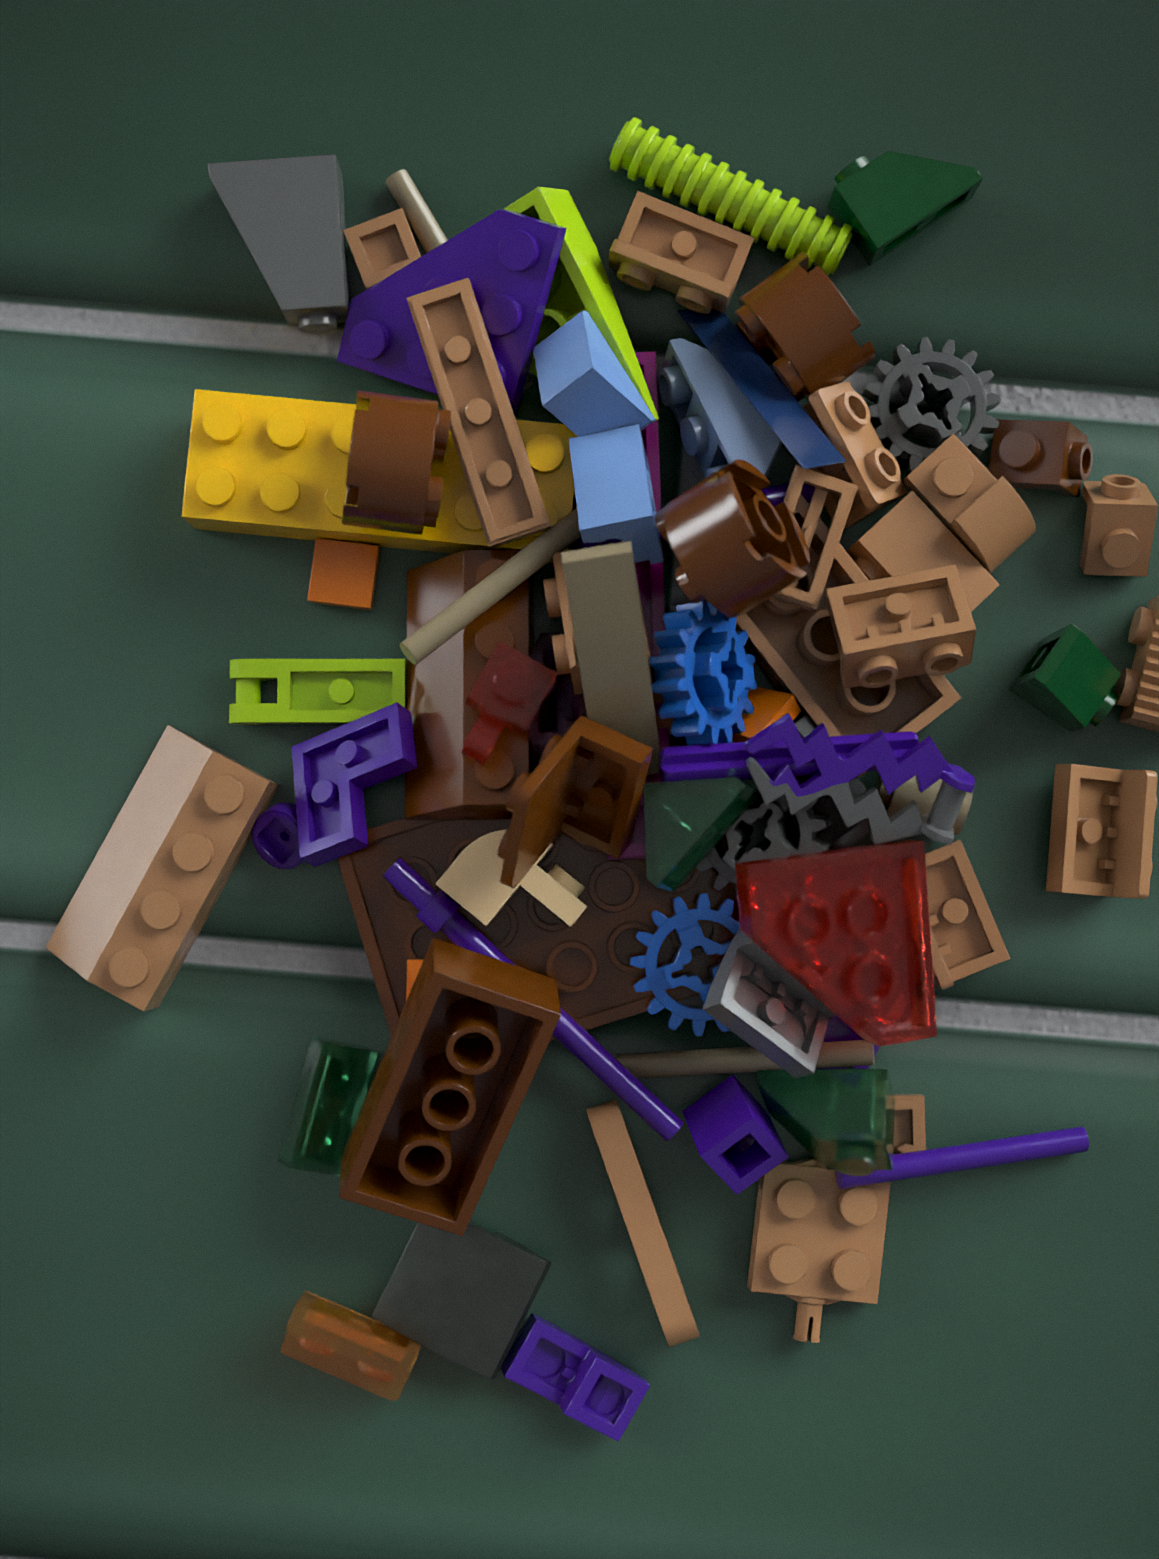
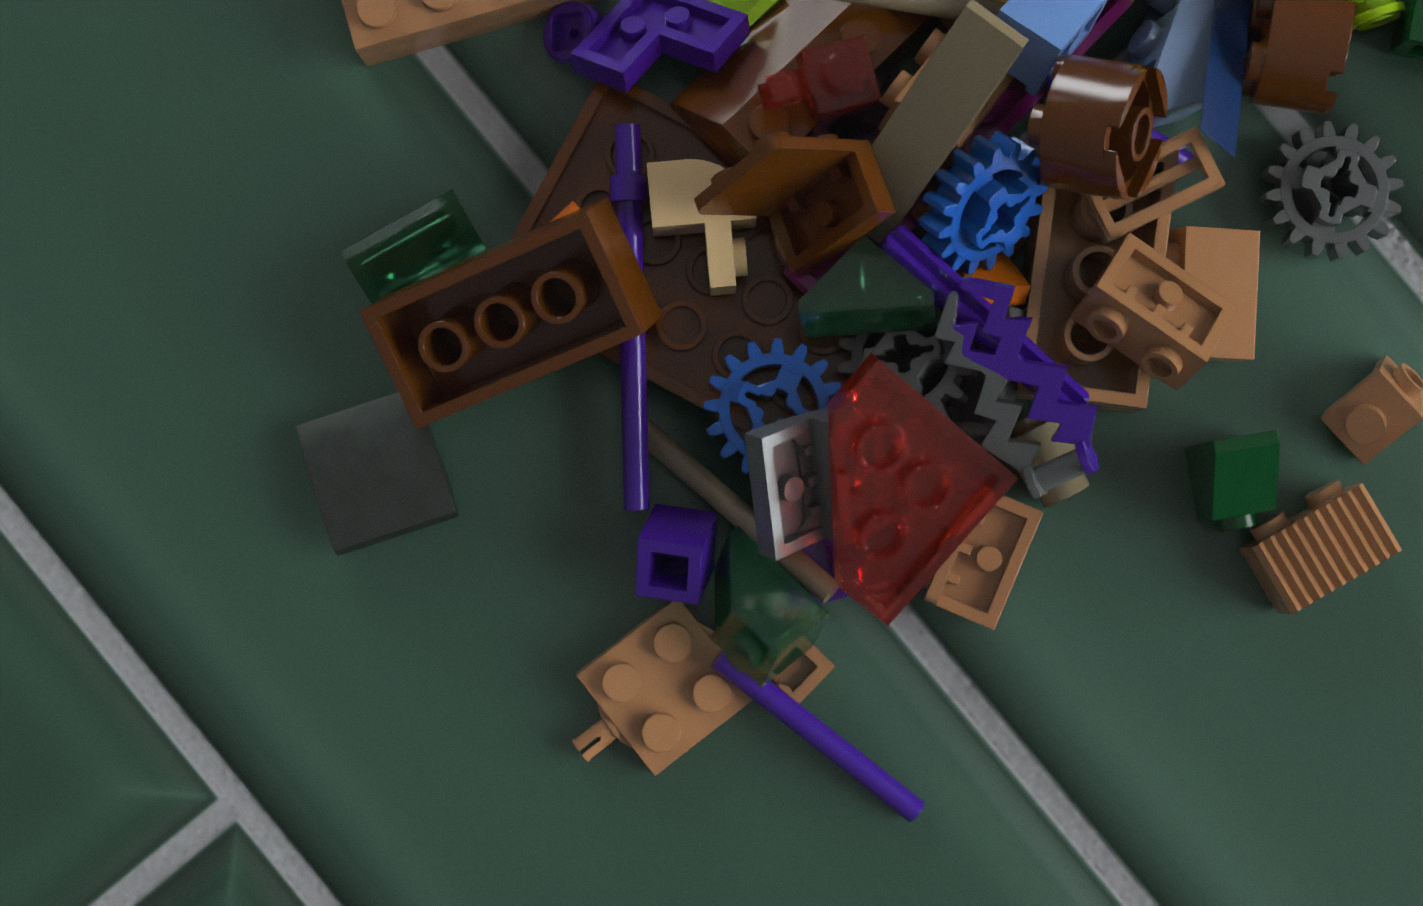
camera: 40 degrees right, 0 degrees up
(349, 1346) = (260, 429): clear orange bracket -> none
(575, 1377) = (393, 612): dark purple slope -> none
(642, 1223) = (549, 552): medium nougat beam -> none
(847, 425) = (1261, 137): medium nougat bracket -> none
(972, 503) = (1293, 286): medium nougat brick -> none
(1041, 455) = (1374, 304): reddish brown bracket -> none
(1101, 831) = (1148, 608): medium nougat bracket -> none

